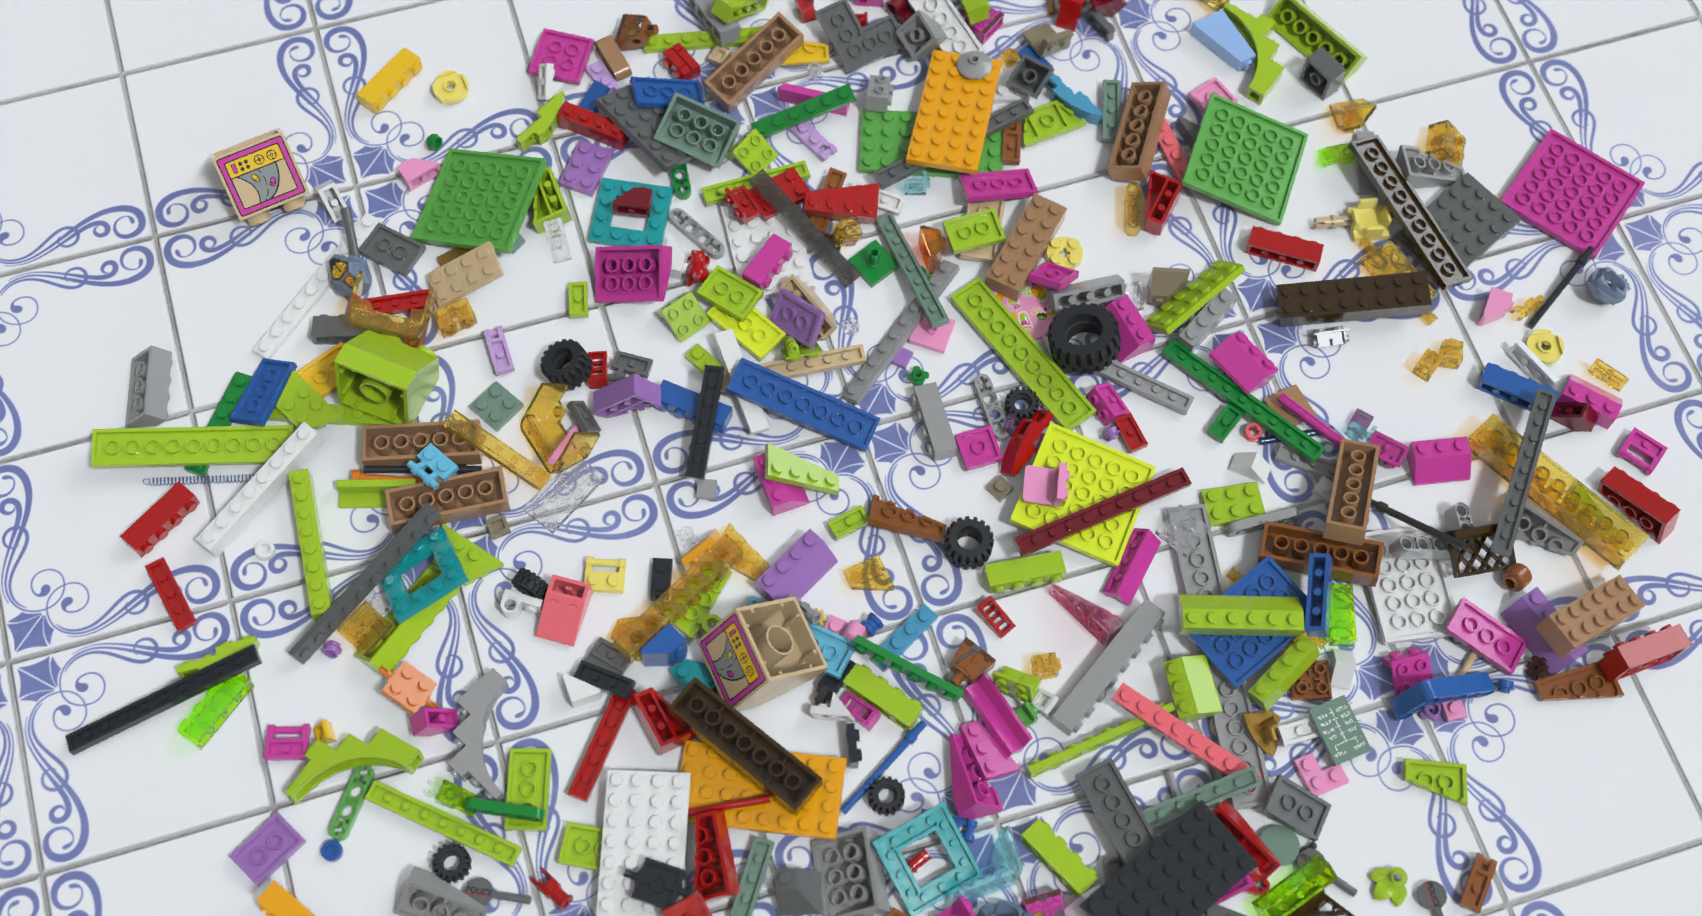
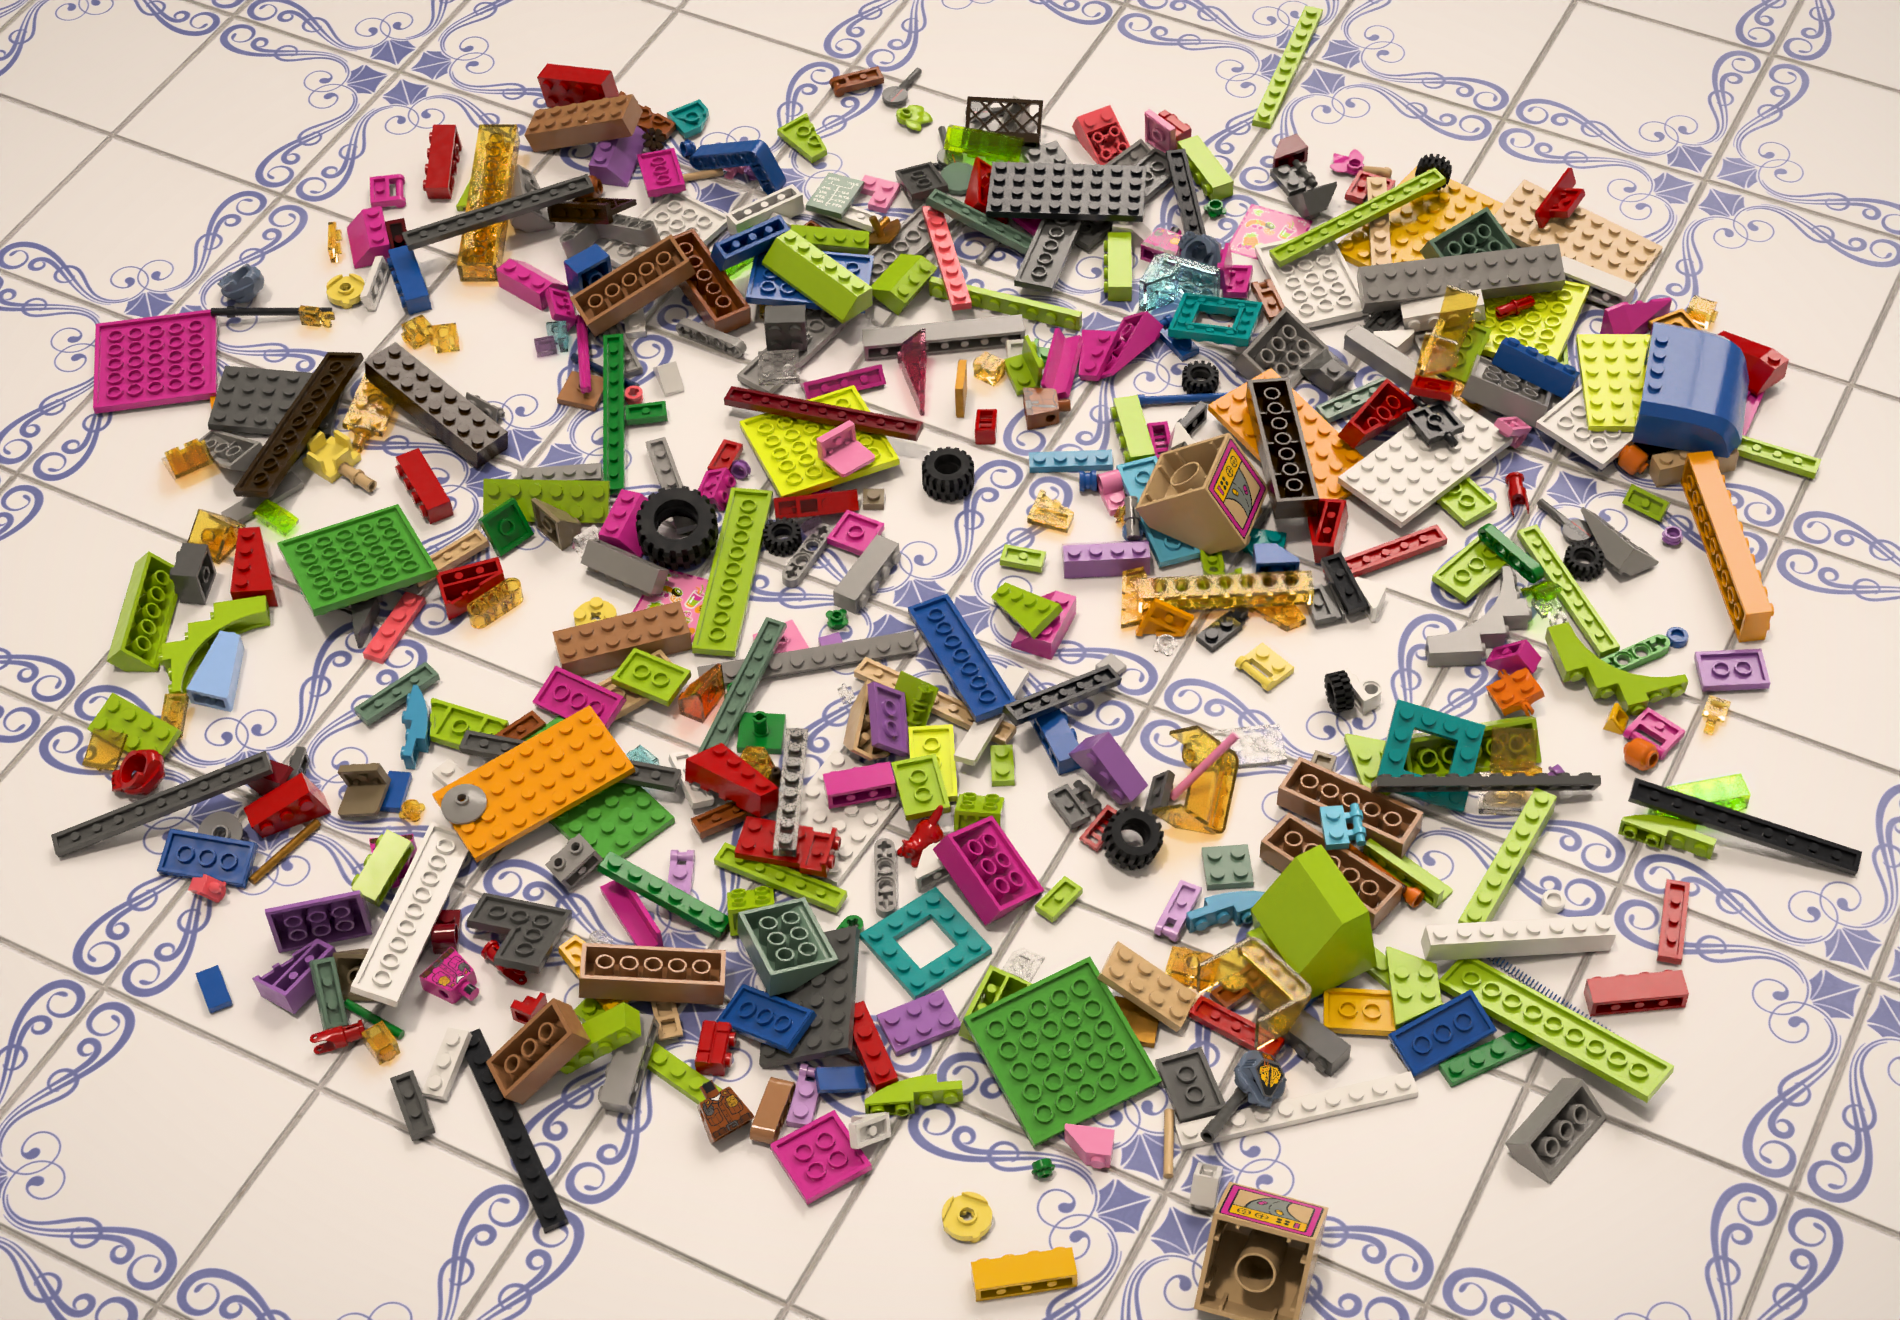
camera: 130 degrees left, 15 degrees down
(256, 798) = (1715, 710): none -> clear yellow plate
(283, 712) = (1641, 754): none -> orange head
(376, 210) = (1168, 1143): none -> tan bar
(463, 380) = (1222, 908): none -> dark azure slope
(497, 450) = (1269, 808): clear yellow tile -> none
(564, 610) = (1323, 655): coral slope -> none
(634, 202) = (915, 931): dark red slope -> none
(730, 805) = (1331, 440): red bar -> none
(893, 518) = (982, 531): dark orange wing -> none
(900, 665) = (1097, 426): green plate -> none
(921, 35) = (474, 867): light grey slope -> none
(1024, 572) = (936, 431): lime brick -> none
(1030, 76) = (428, 763): dark grey slope -> none
(1037, 620) = (961, 388): none -> pearl gold tile
(1053, 276) = (634, 592): dark pink plate -> none
(1139, 131) = (405, 646): medium nougat brick -> none
(1193, 254) = (505, 527): none -> green tile
(1201, 94) = (301, 637): bright pink plate -> none
(1202, 221) = (458, 552): none -> tan plate
(1208, 553) = (786, 327): none -> dark grey brick
(1232, 503) = (713, 366): lime plate -> none
(1244, 362) = (578, 430): dark pink slope -> none
(1299, 110) = (251, 567): none -> red wedge
(1367, 659) = (784, 202): none -> white brick
(1383, 508) = (615, 229): pearl dark grey bar -> none
(1408, 491) = (586, 268): none -> blue brick
(1408, 667) = (735, 194): dark pink bracket -> none
(1495, 306) = (339, 335): bright pink slope -> none
(1543, 718) = (689, 118): none -> teal plate

